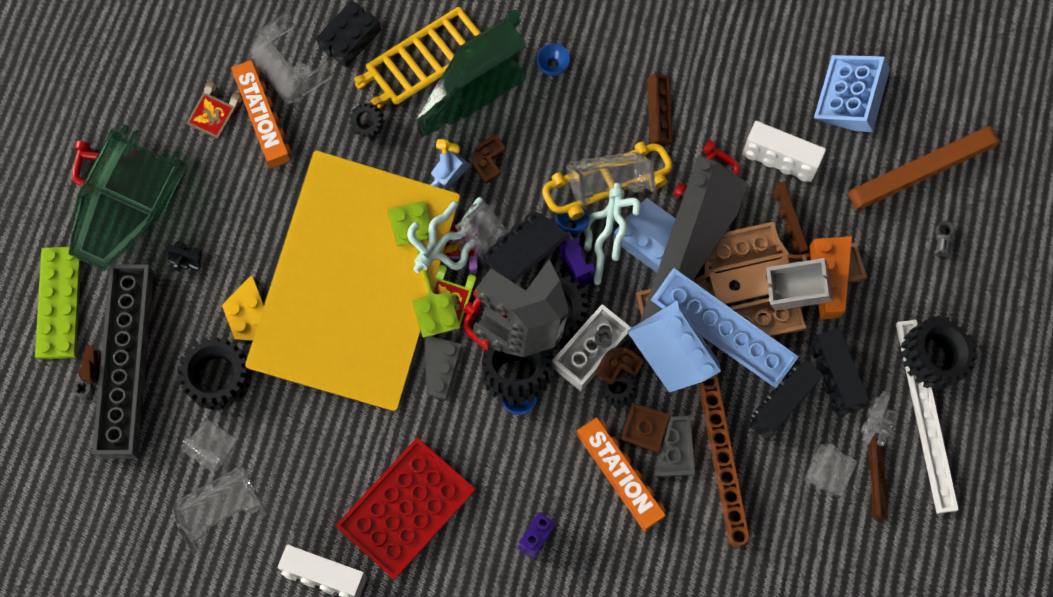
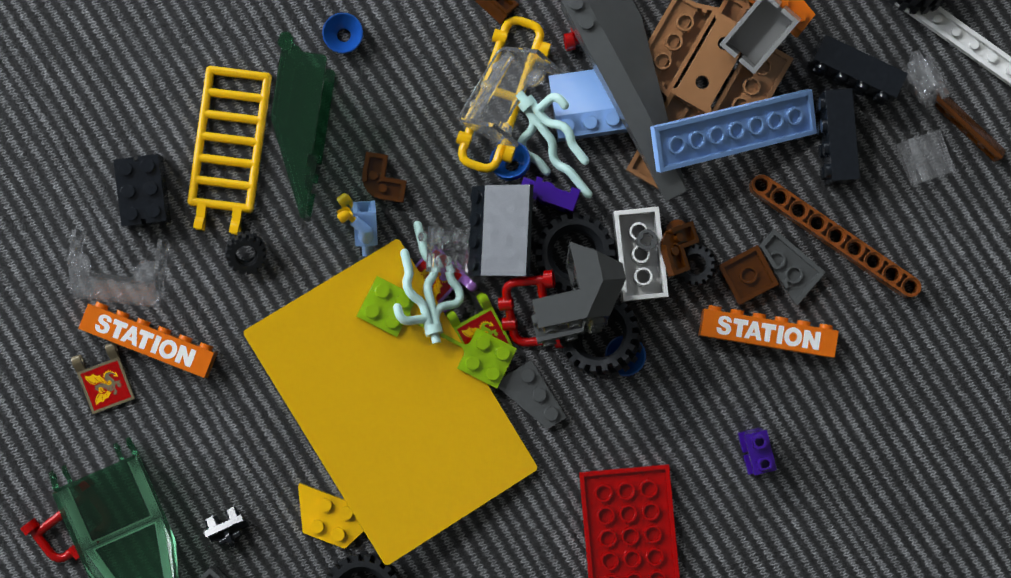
camera: 45 degrees left, 15 degrees up
(675, 348) = (713, 188): light blue slope -> none

